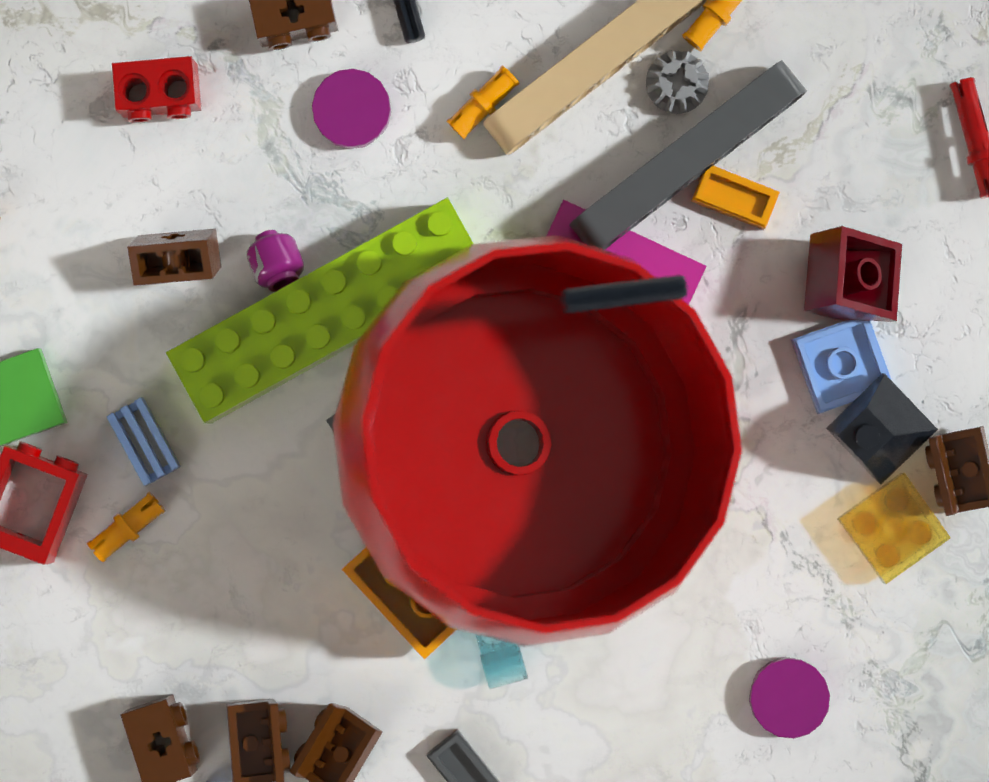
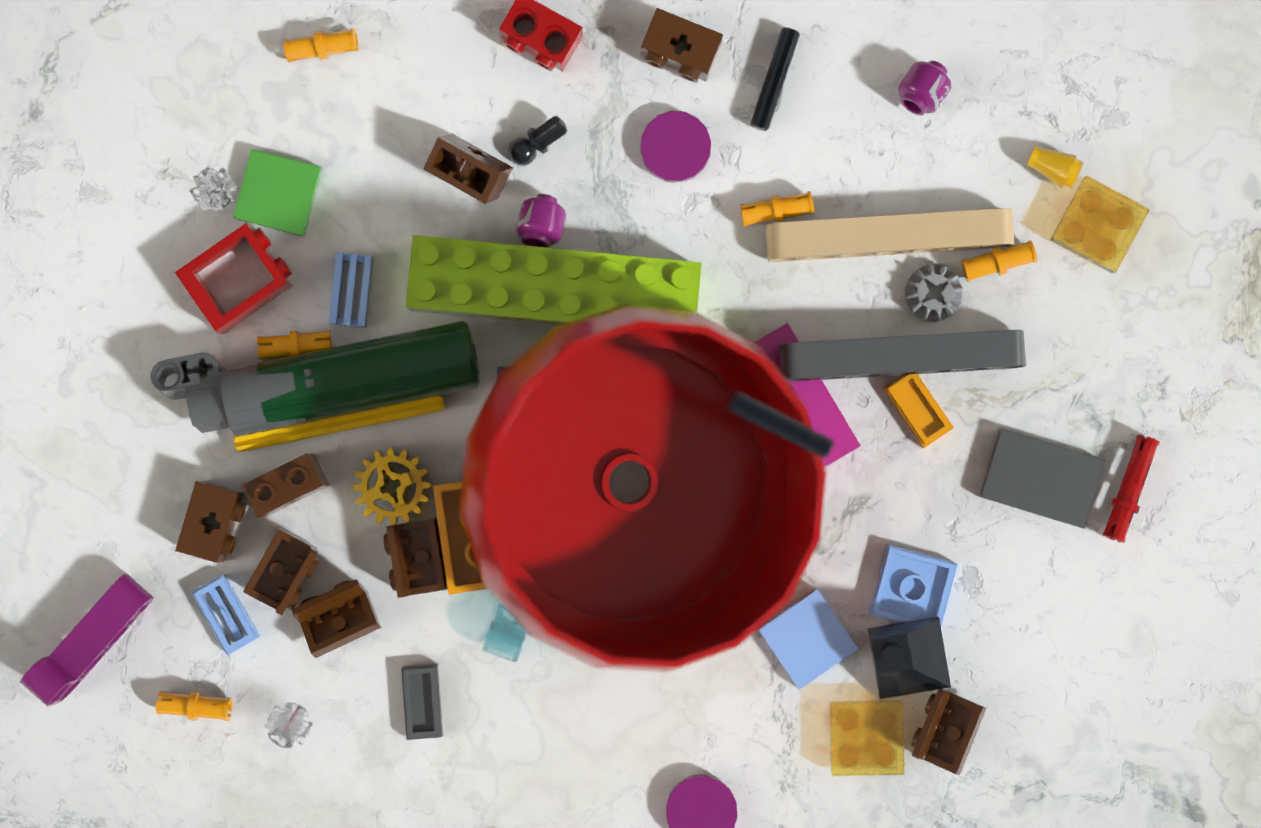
camera: 35 degrees right, 0 degrees up
(173, 543) = (322, 381): none -> dark green piece
(205, 661) = (285, 485): none -> reddish brown brick
(214, 206) = (524, 150): none -> black axle
(215, 569) = (339, 423): none -> yellow axle
(295, 609) = (378, 492): none -> yellow gear
(370, 646) = (415, 558): none -> reddish brown bracket
(779, 474) = (808, 638): none -> light blue tile
(853, 275) = (965, 528): dark red slope -> none
(891, 182) = (1042, 478): none -> dark grey tile

